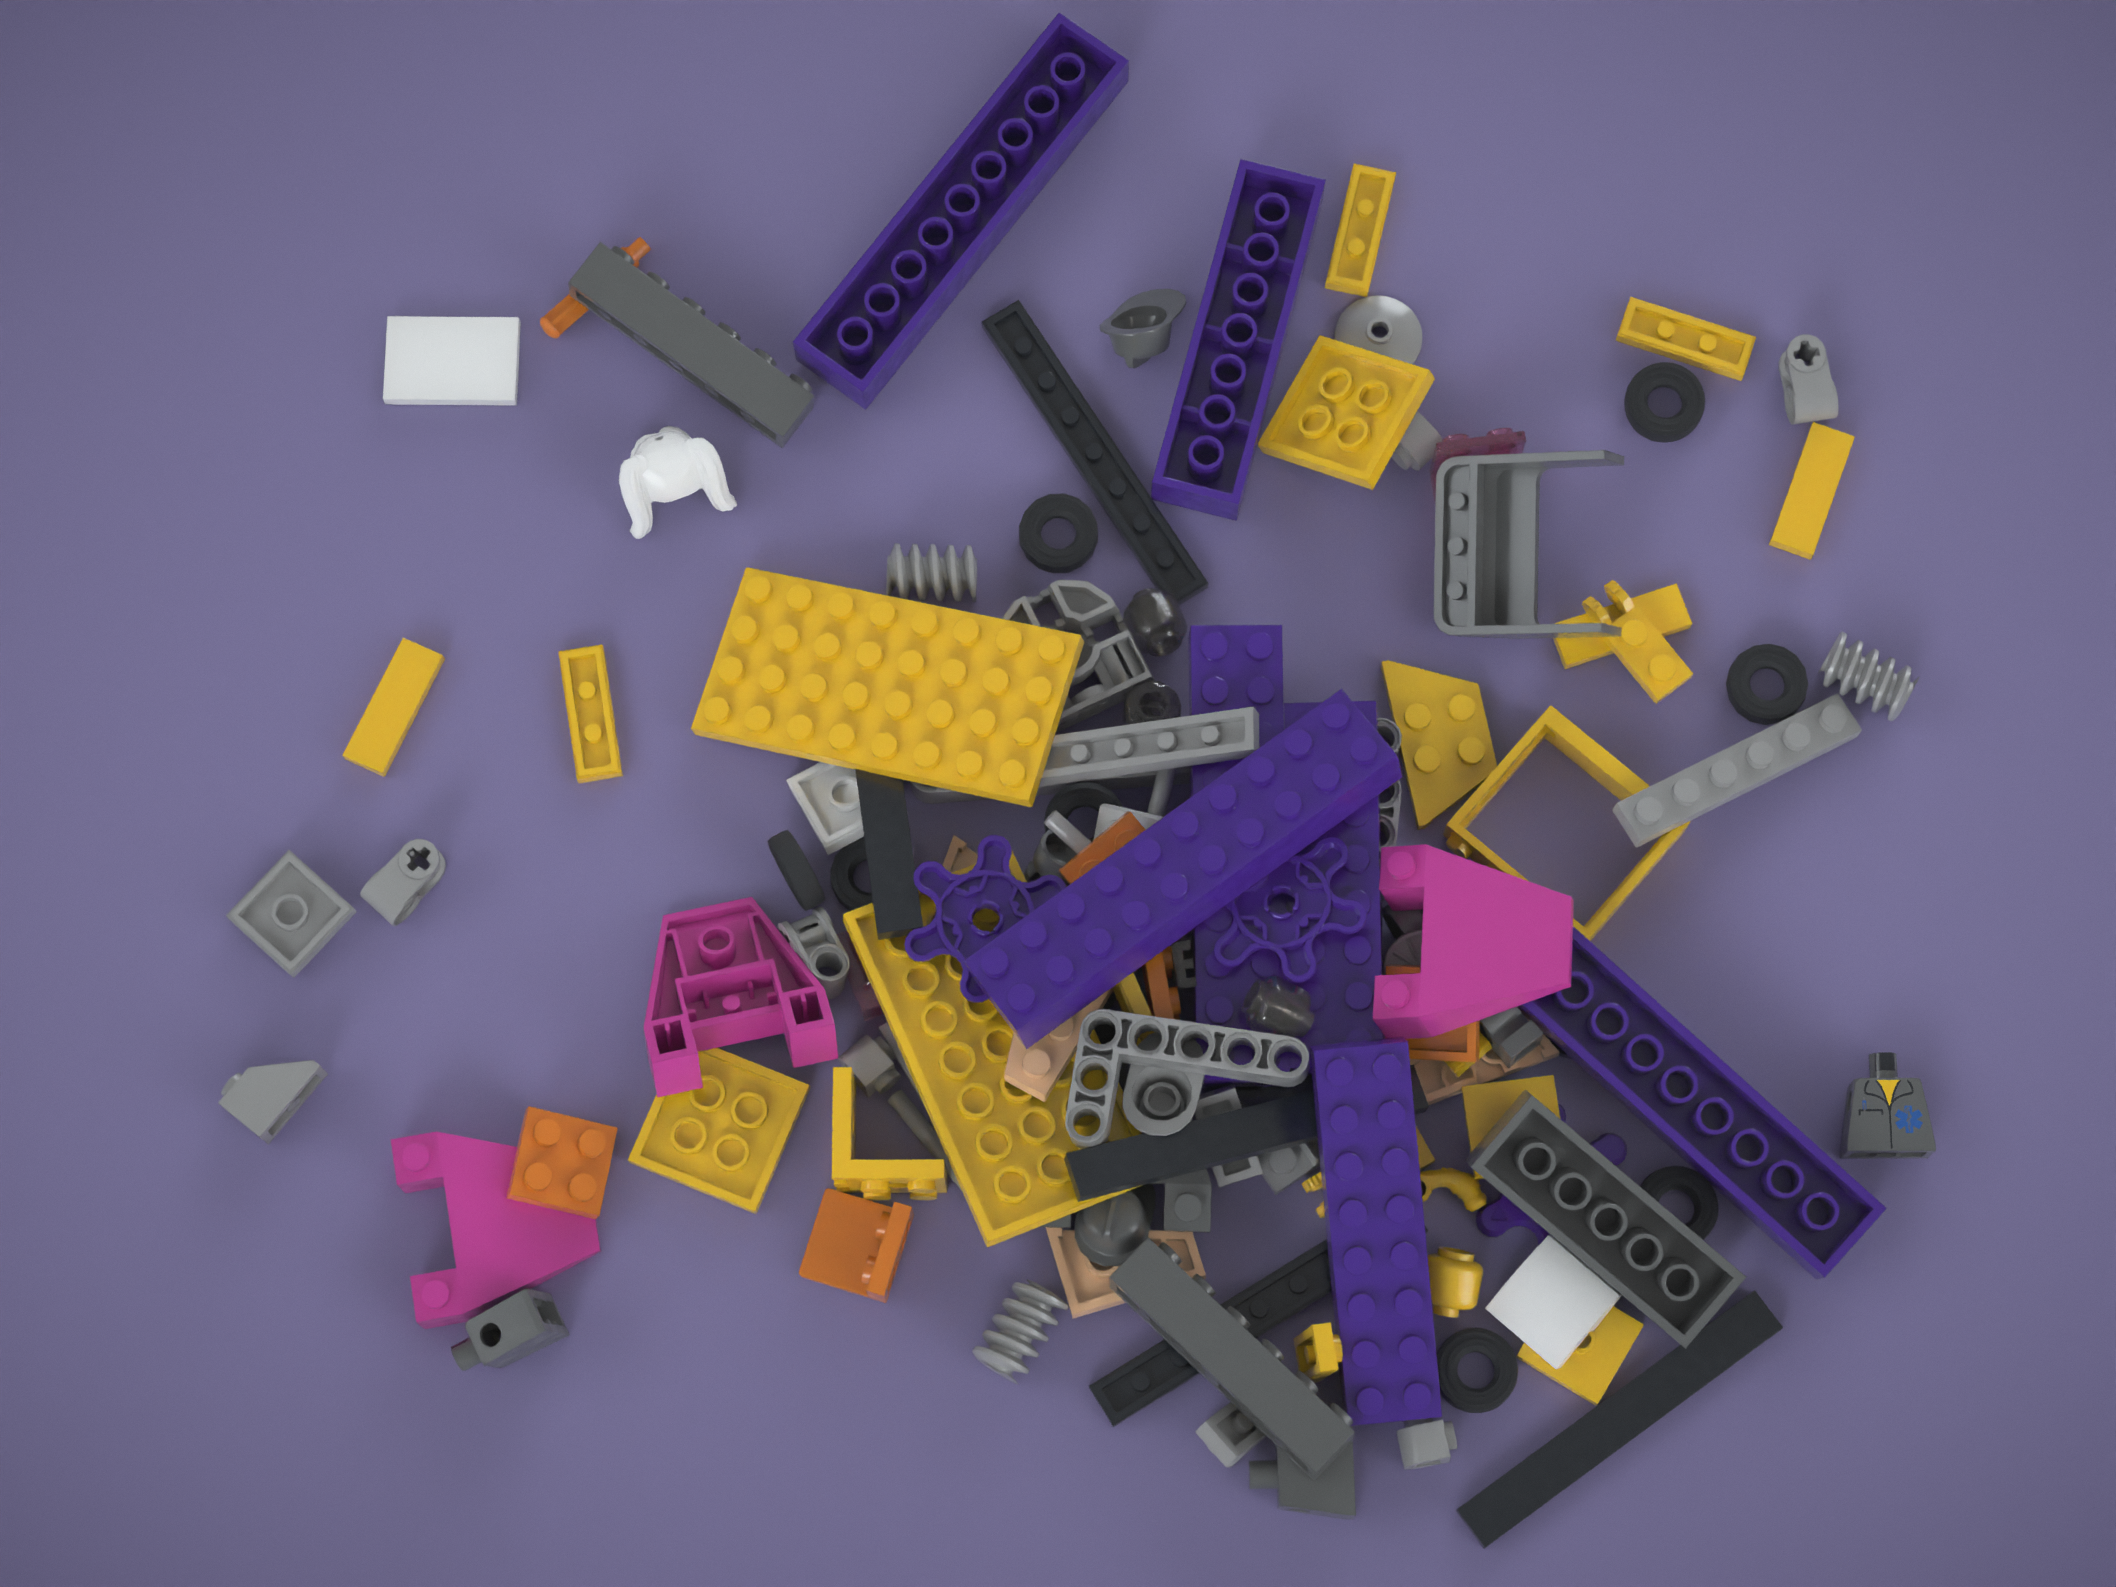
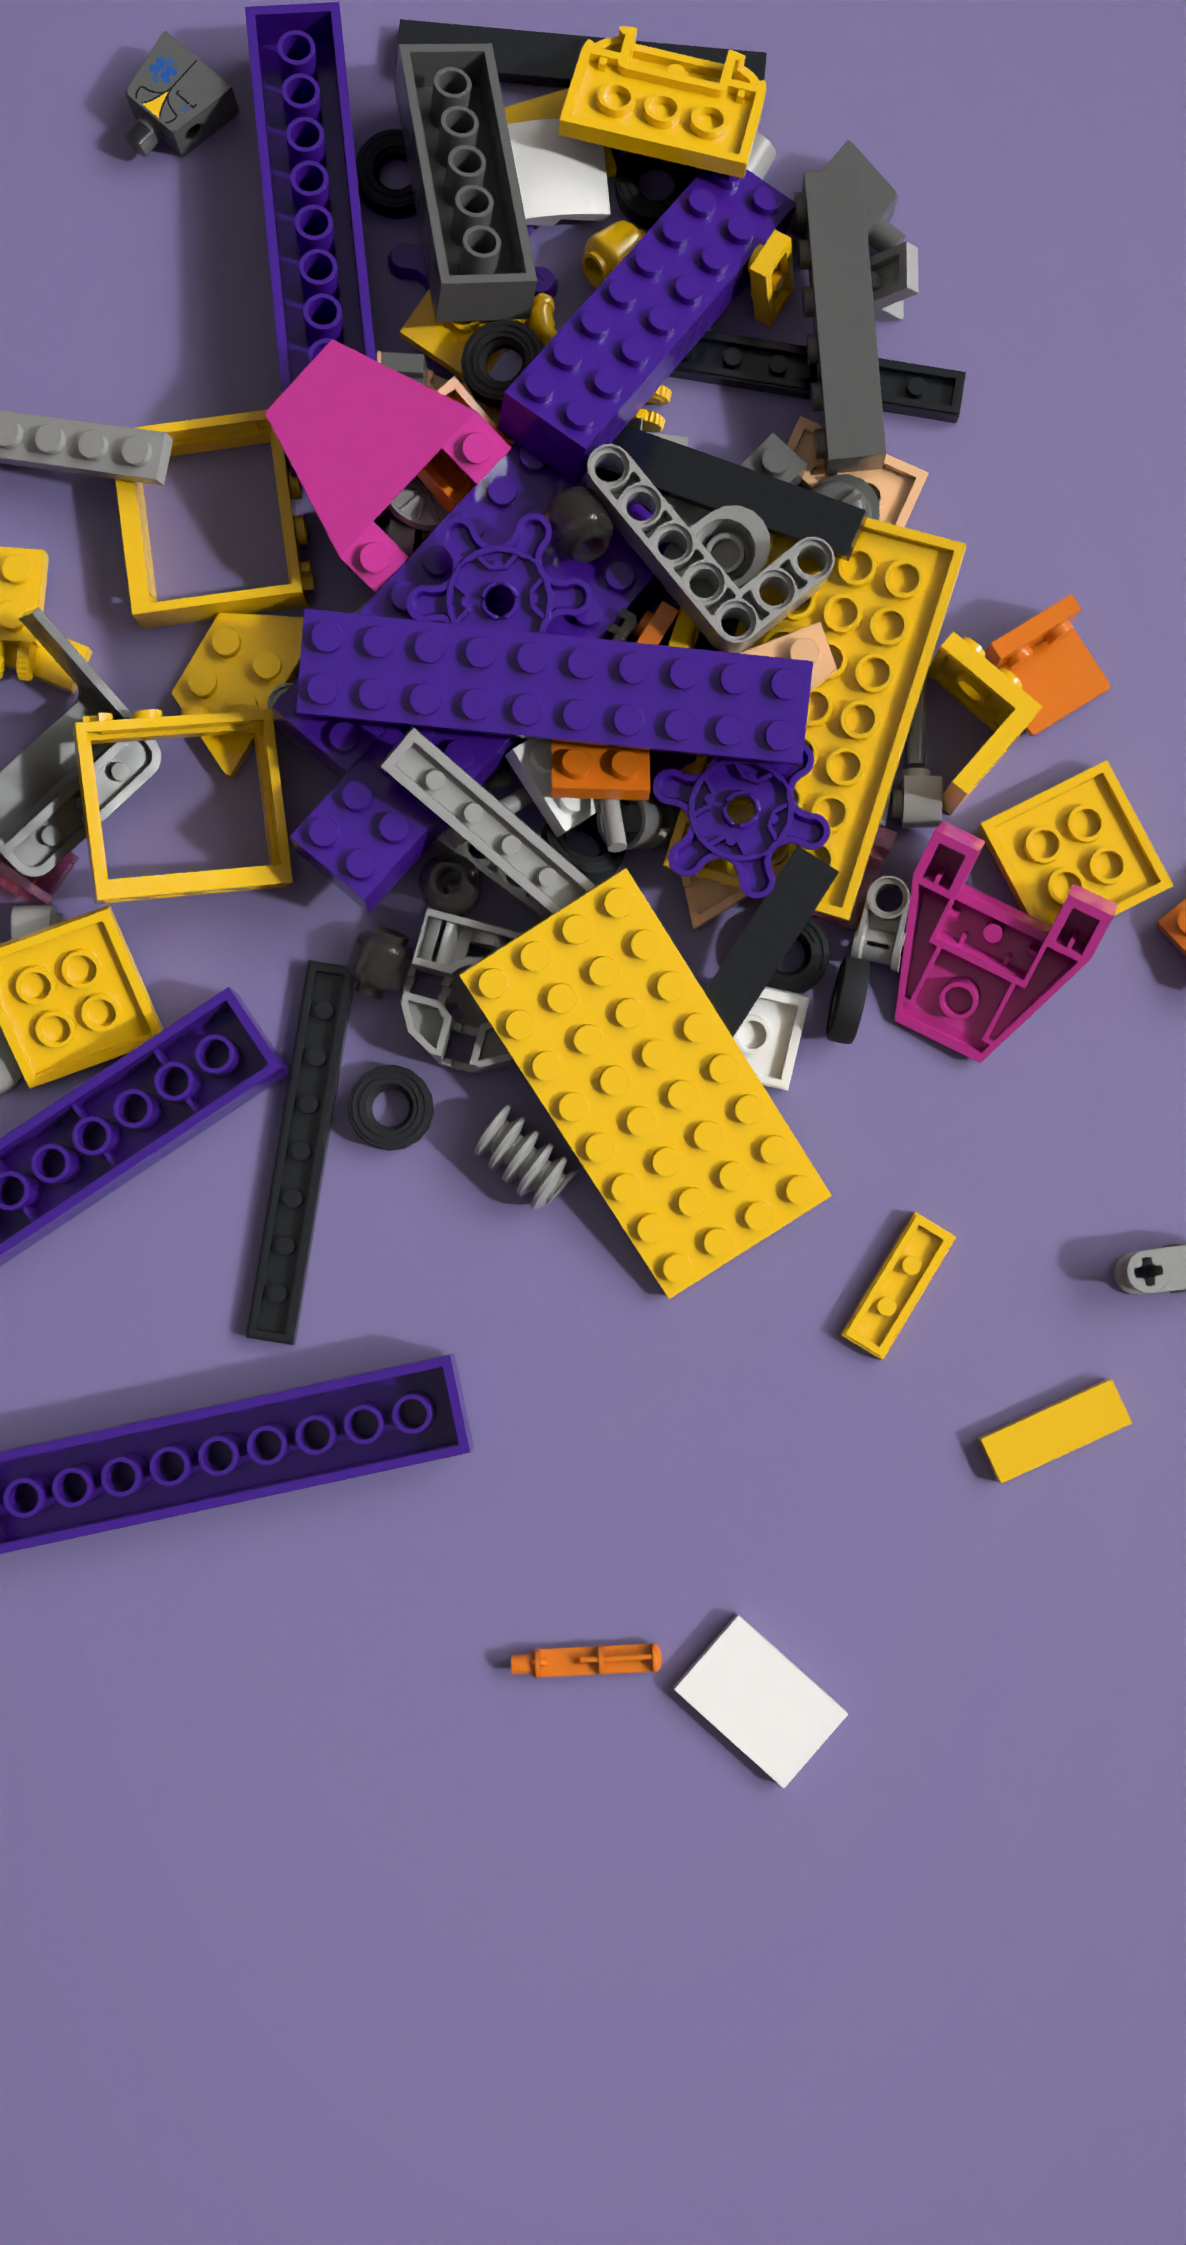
camera: 140 degrees left, 10 degrees up
(669, 468) = (663, 1437): white hair -> none
(691, 343) = (552, 1532): dark grey brick -> none
(1019, 1329) = (976, 493): light grey piece -> none
(1143, 325) = (161, 1222): dark grey piece -> none
(1333, 556) = (193, 722): none -> yellow window
(1467, 1086) = (485, 342): none -> black tyre
(1511, 1409) = (664, 104): none -> yellow plate

